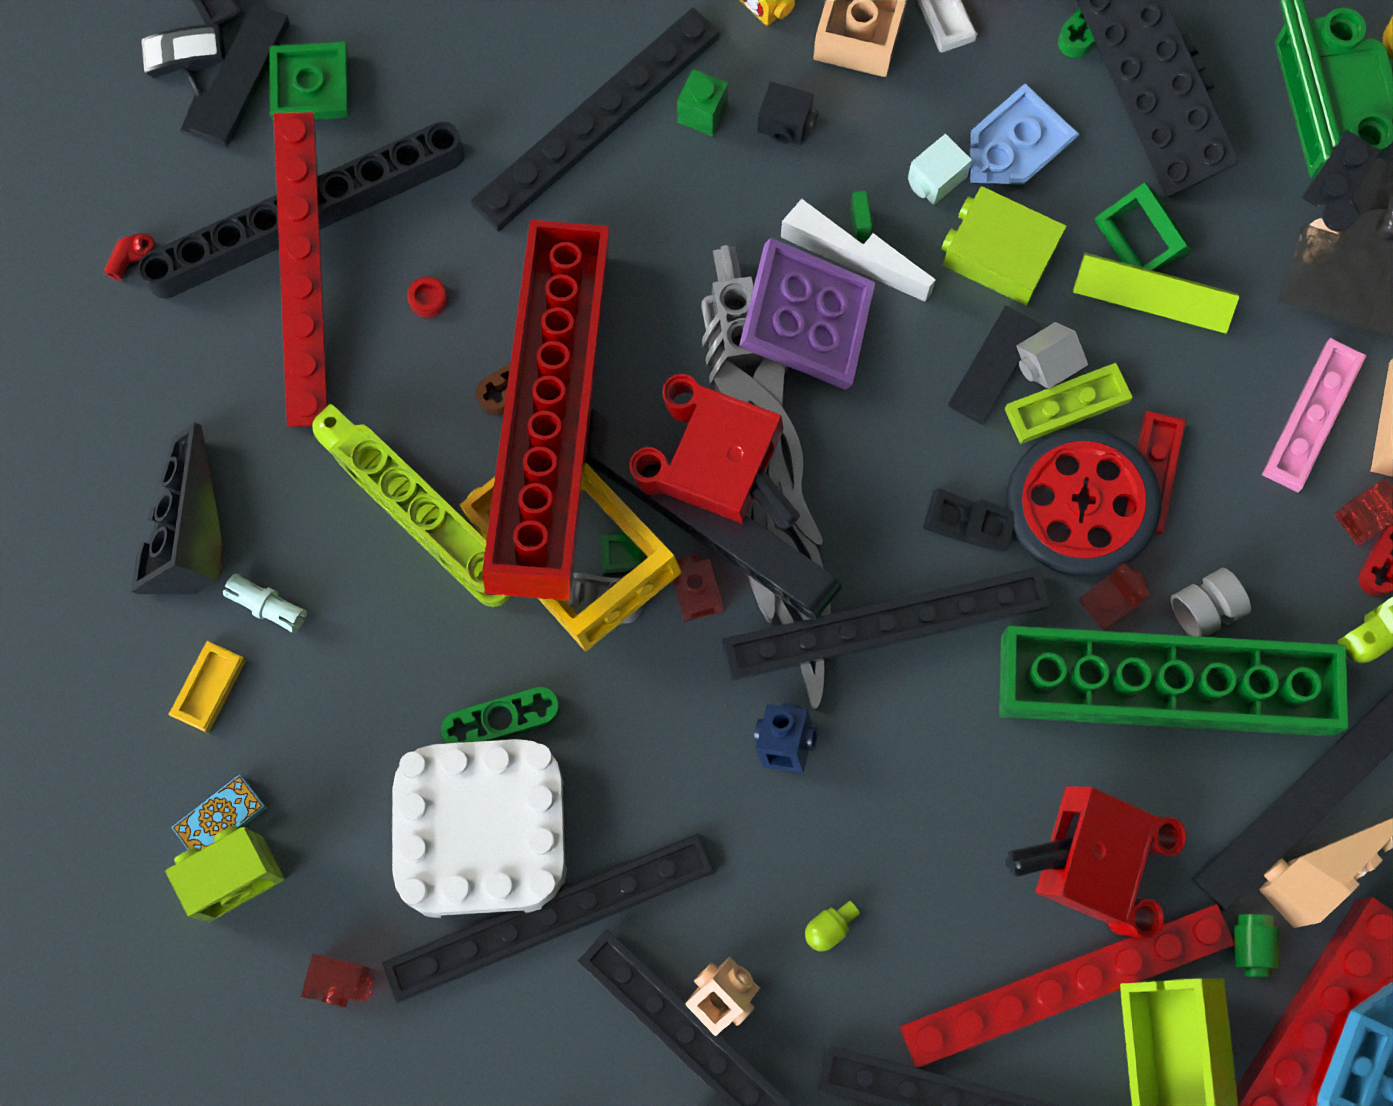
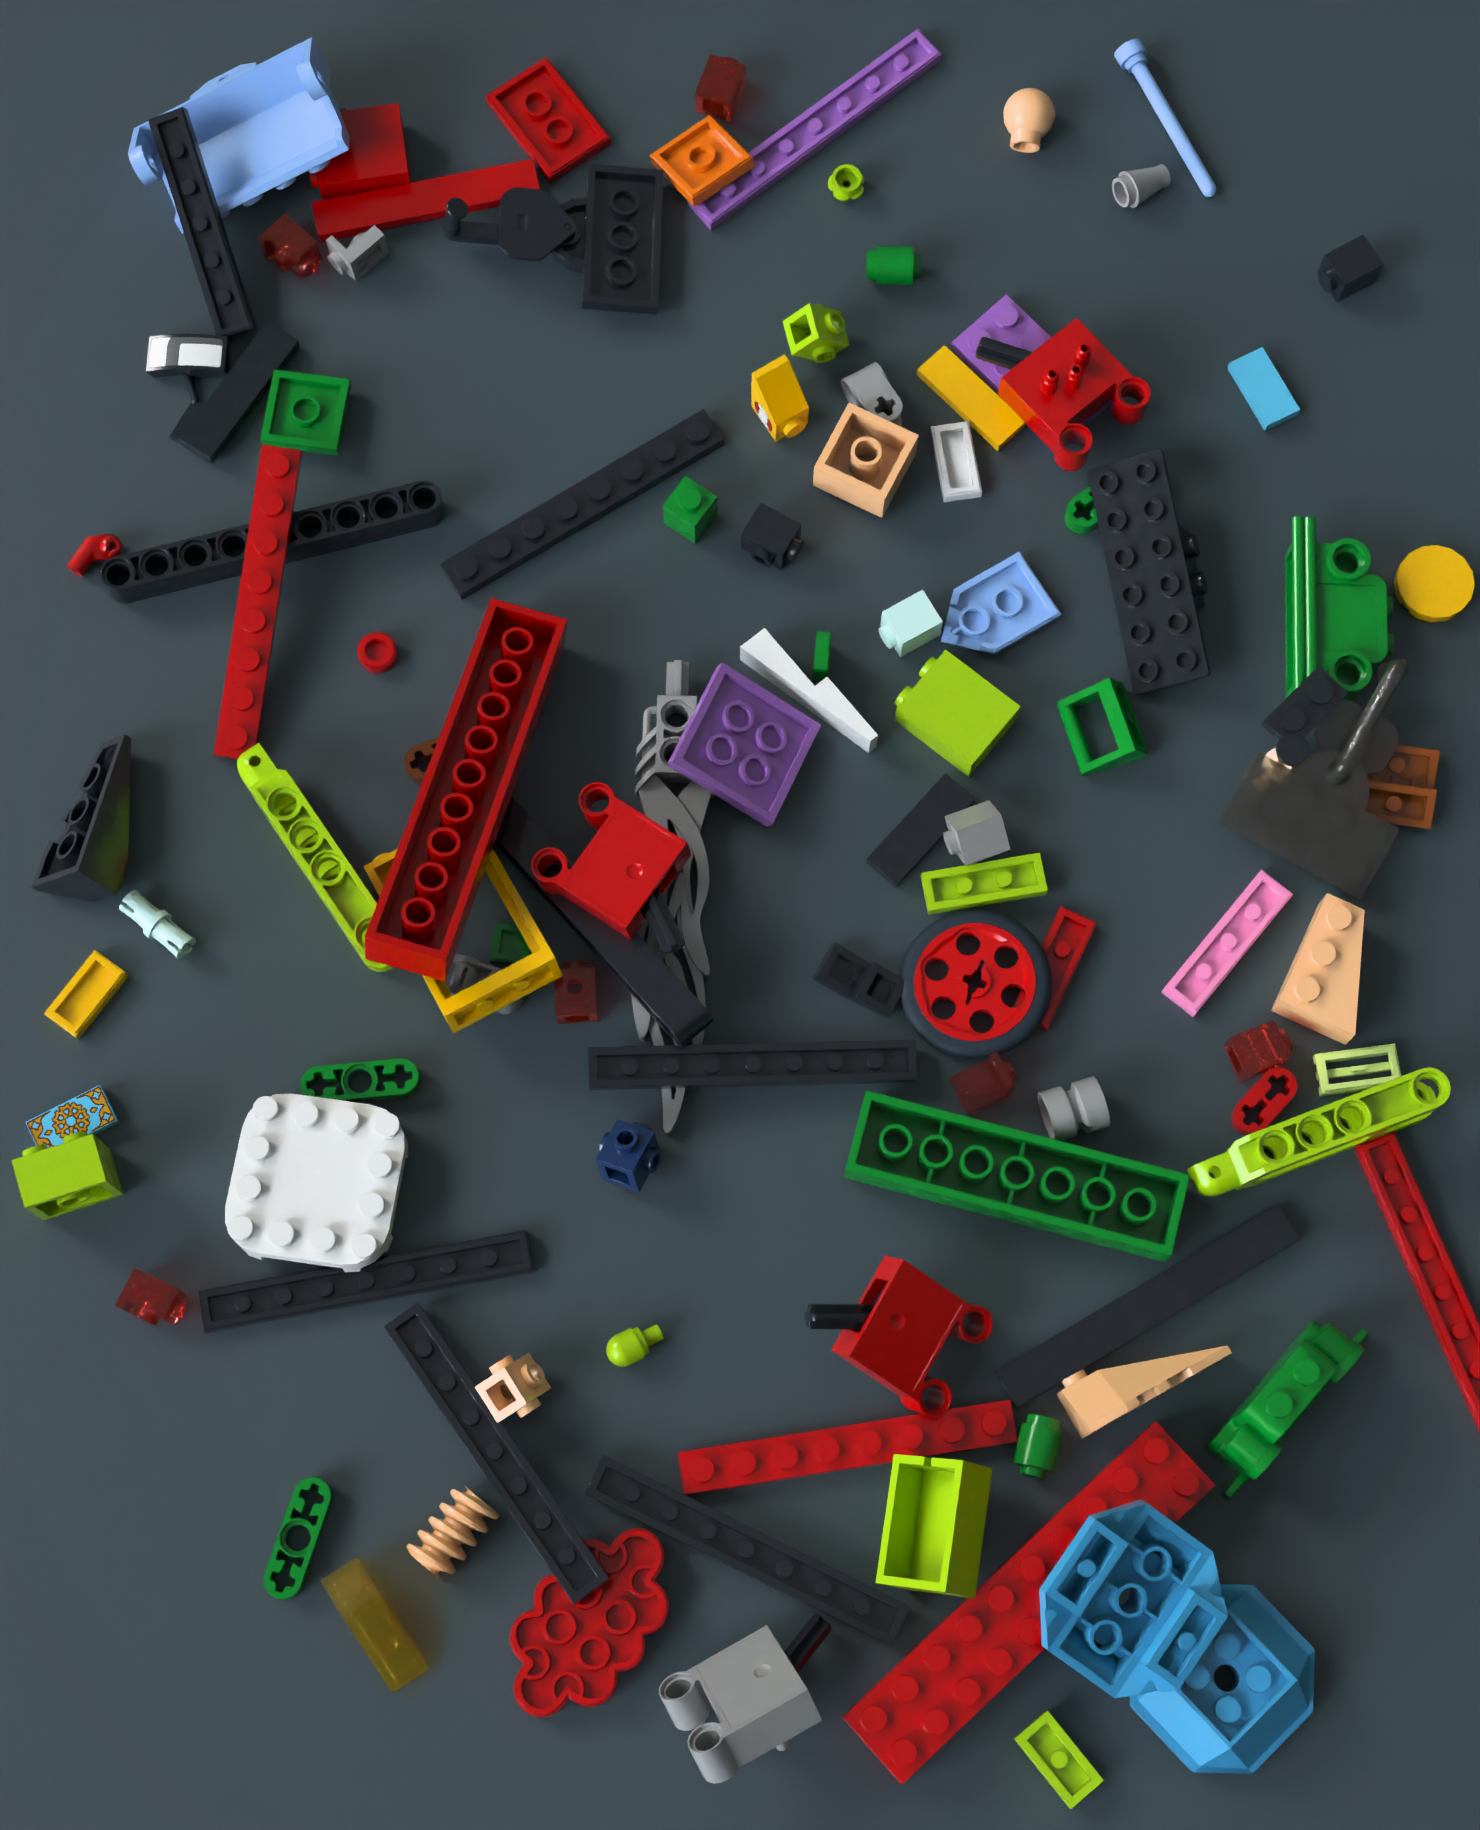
camera: 10 degrees right, 0 degrees up
(1155, 293) = (1097, 790): lime tile -> none

